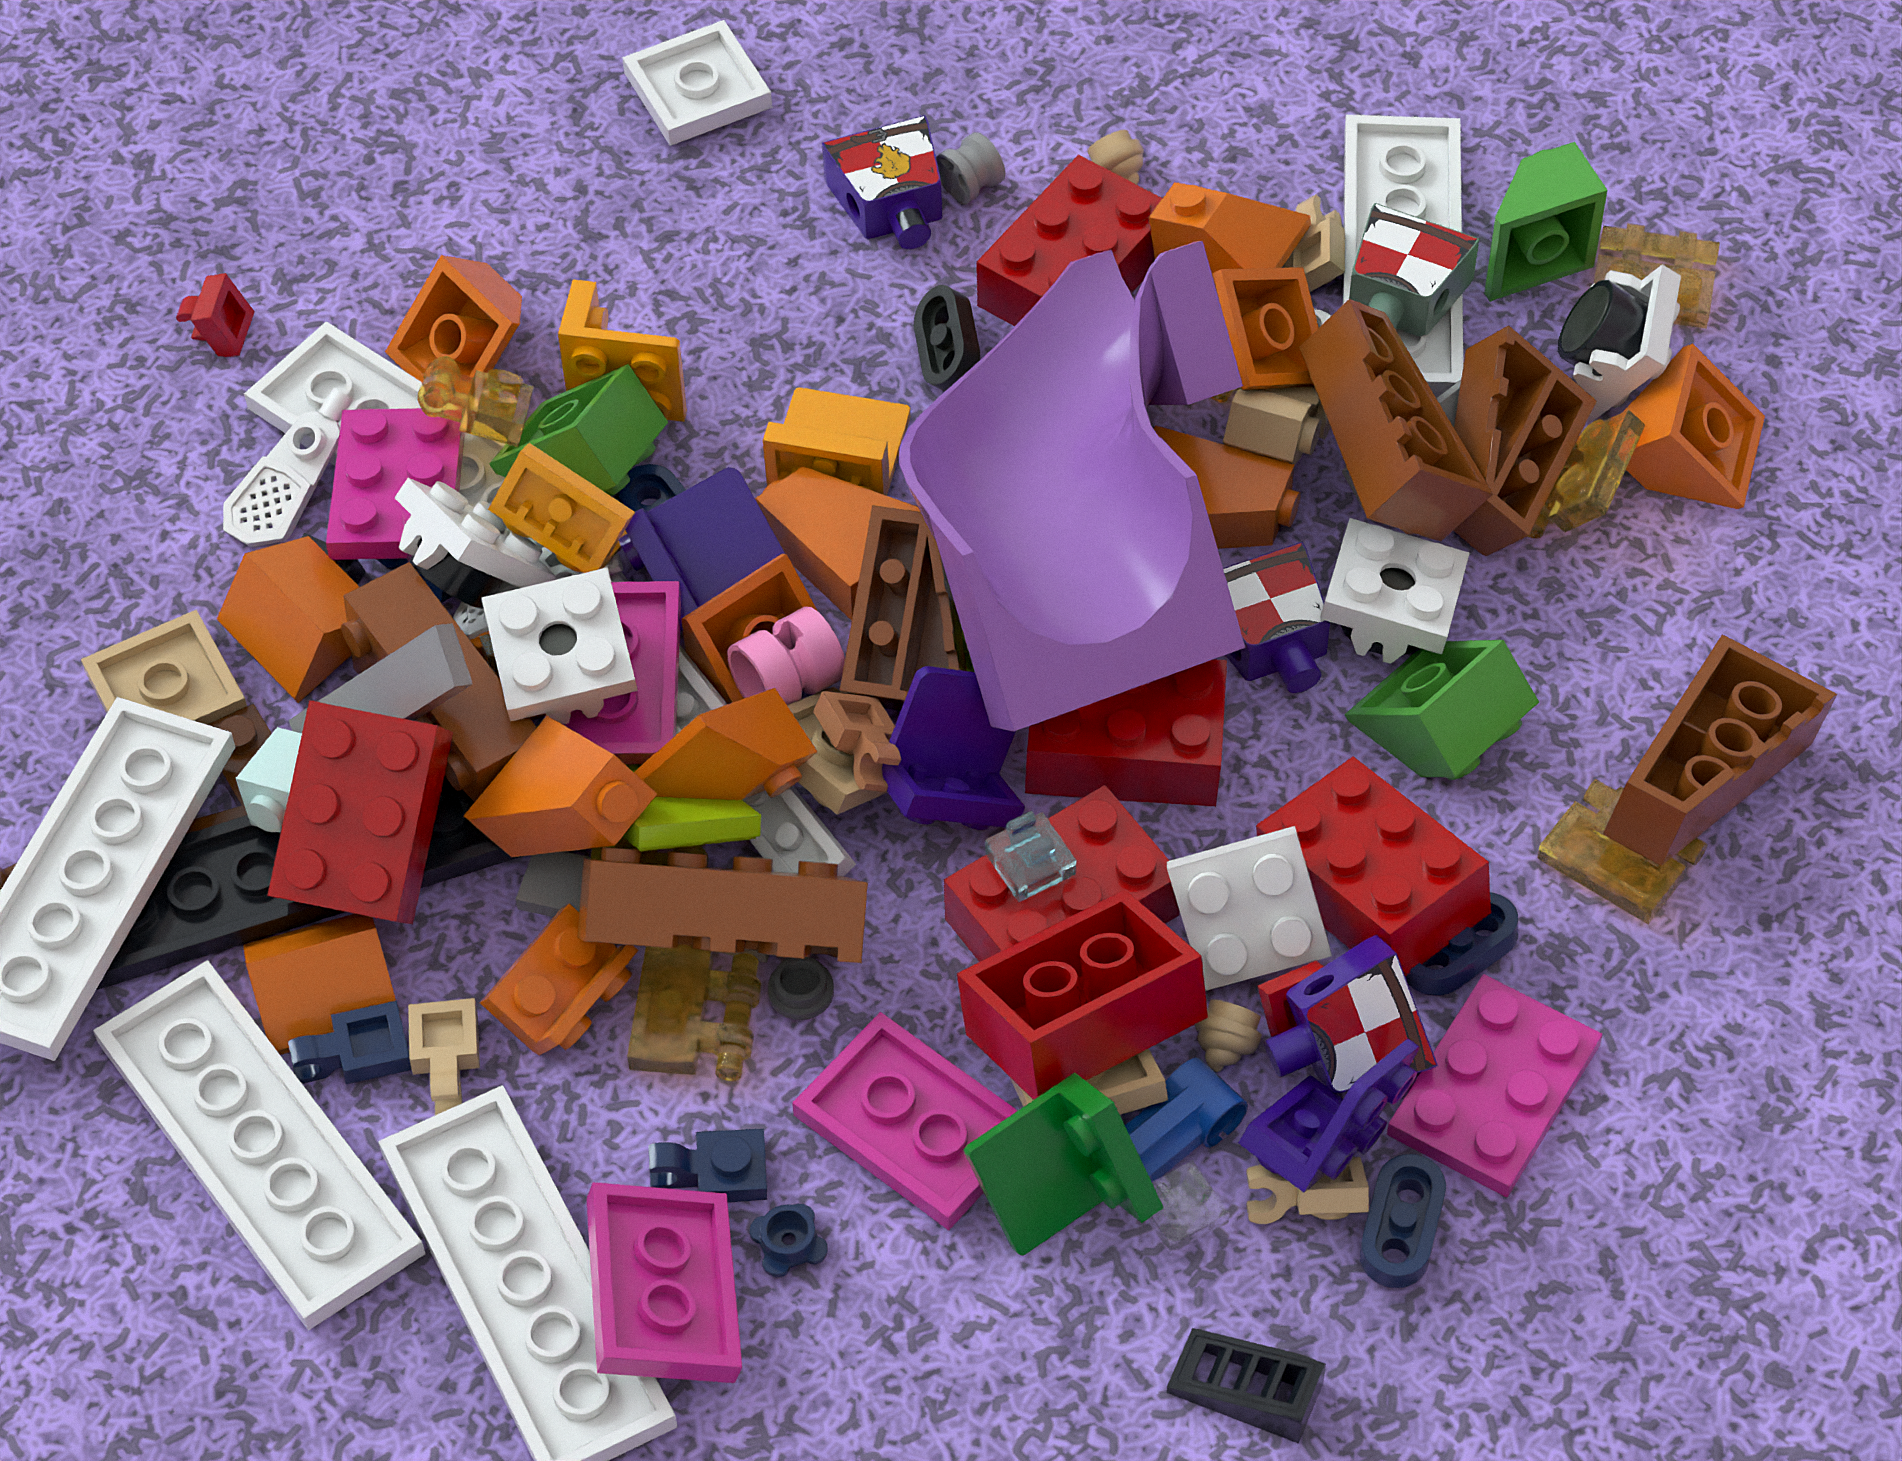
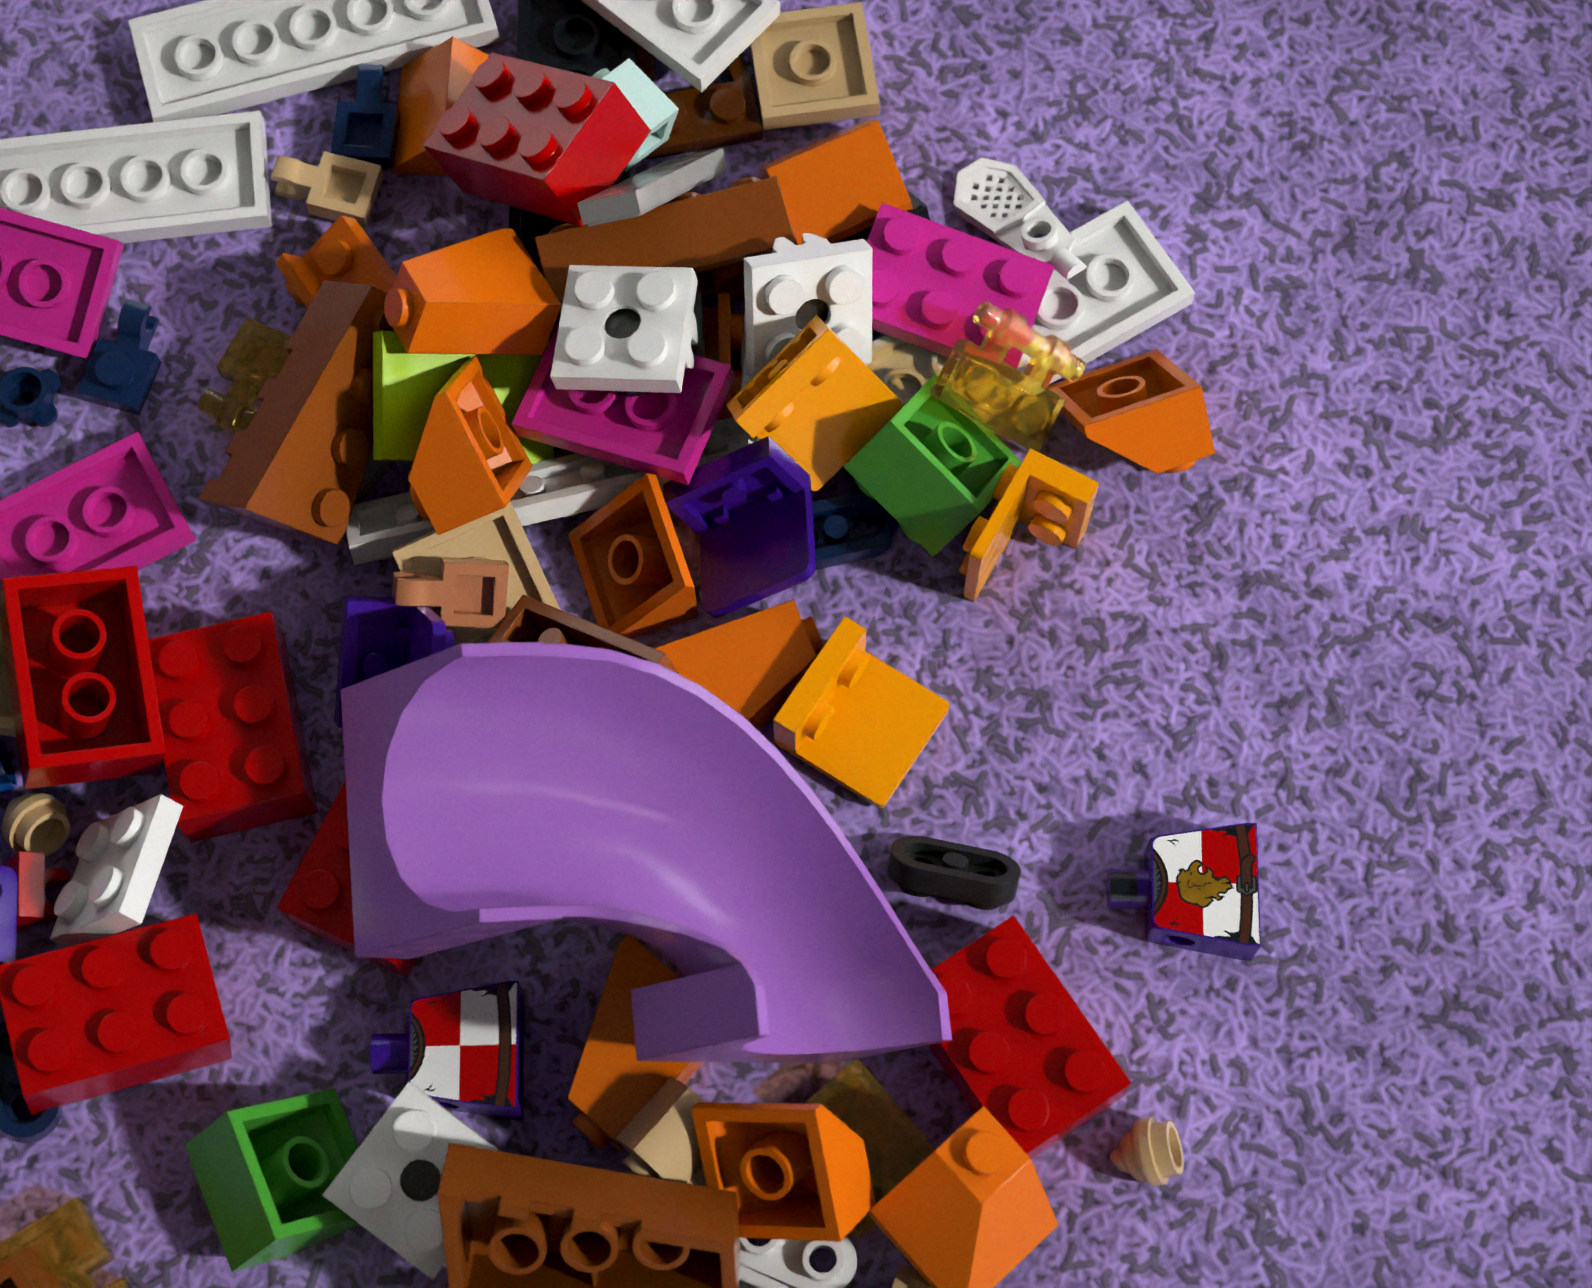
camera: 110 degrees right, 15 degrees up
(219, 315) = (1240, 204): red tile -> none
(697, 82) = (1421, 744): white plate -> none
(793, 659) = (578, 551): bright pink wheel -> none
(970, 167) = (1188, 982): light grey wheel -> none
(1030, 855) = (237, 681): clear light blue tile -> none

